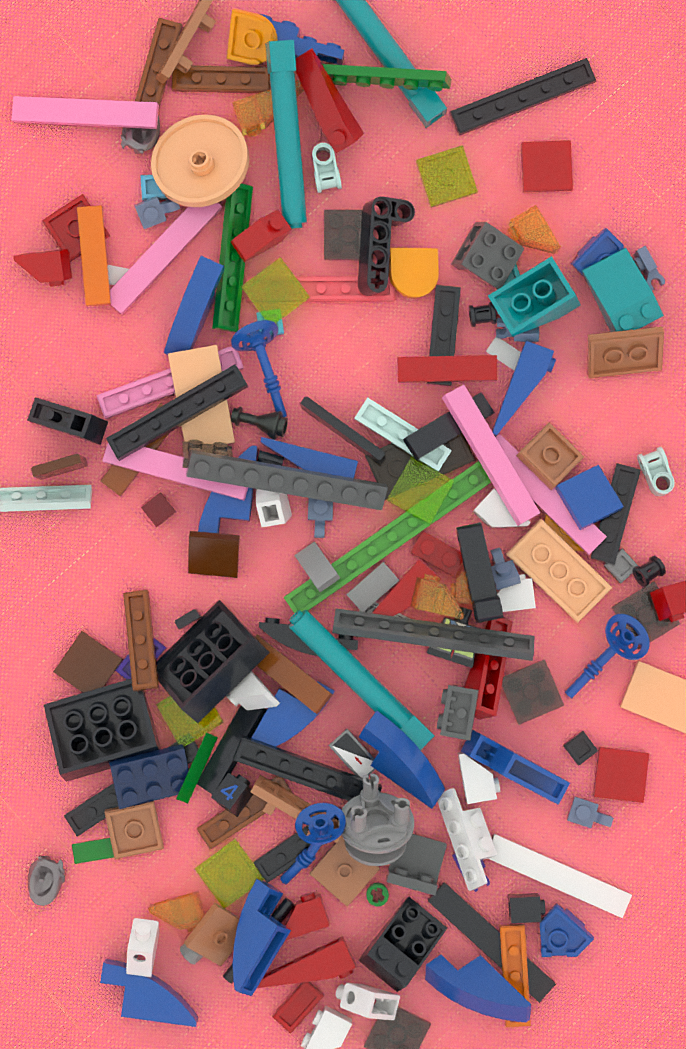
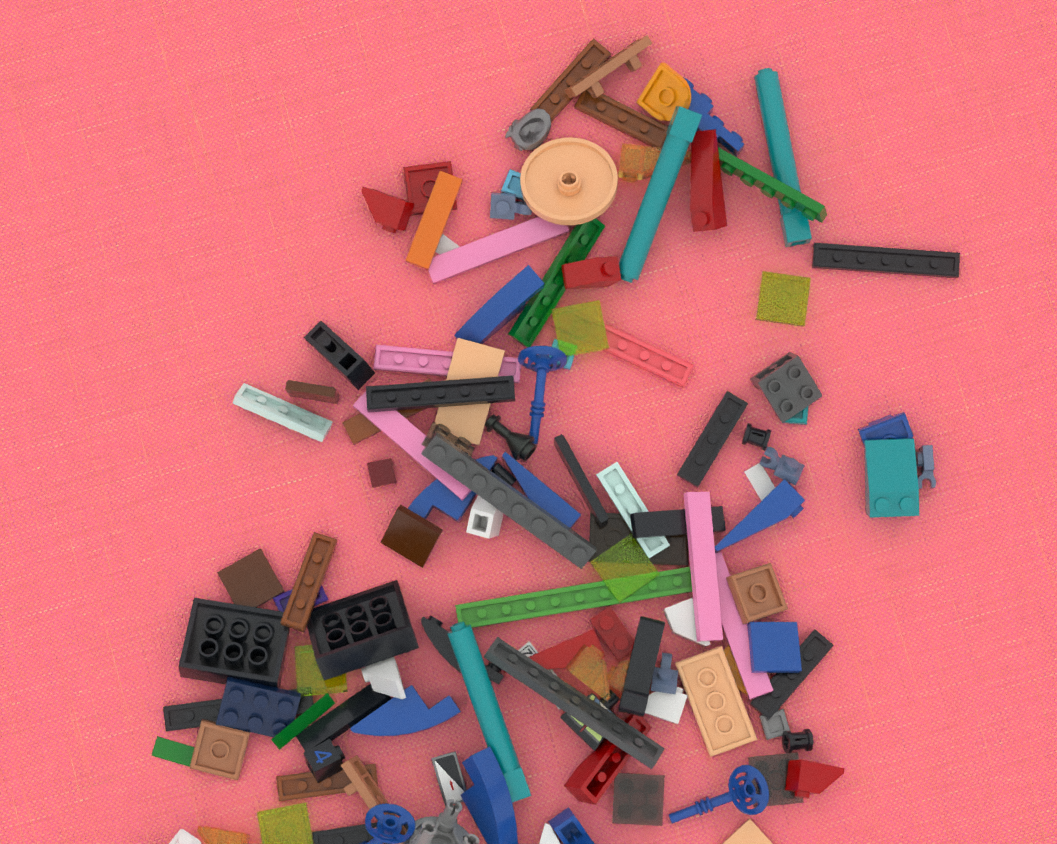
camera: 25 degrees right, 5 degrees down
(45, 880) = (118, 756): flat silver hat -> none
(85, 112) = (487, 91): bright pink tile -> none
(187, 619) = (360, 583): black tile -> none
(293, 678) = (429, 682): dark orange tile -> none
(298, 769) = (394, 766): black tile -> none
(317, 566) = (499, 592): light grey tile -> none
(320, 512) = (525, 544): sand blue plate -> none
(325, 172) = (677, 244): light aqua piece -> none
(342, 234) = (670, 309): clear smoke plate -> none
(369, 271) = (692, 333): black beam -> none
(372, 587) = (540, 635): light grey tile -> none
(413, 270) = (713, 368): light orange tile -> none
(447, 368) = (701, 470): red tile -> none
(458, 712) = (562, 784): dark grey bracket -> none
(533, 231) = (837, 384): clear yellow slope -> none
(534, 298) = (809, 444): teal slope -> none
(547, 166) = (878, 332): red tile -> none
(625, 352) = (869, 532): nougat tile -> none
(656, 470) = (847, 652): light aqua piece -> none

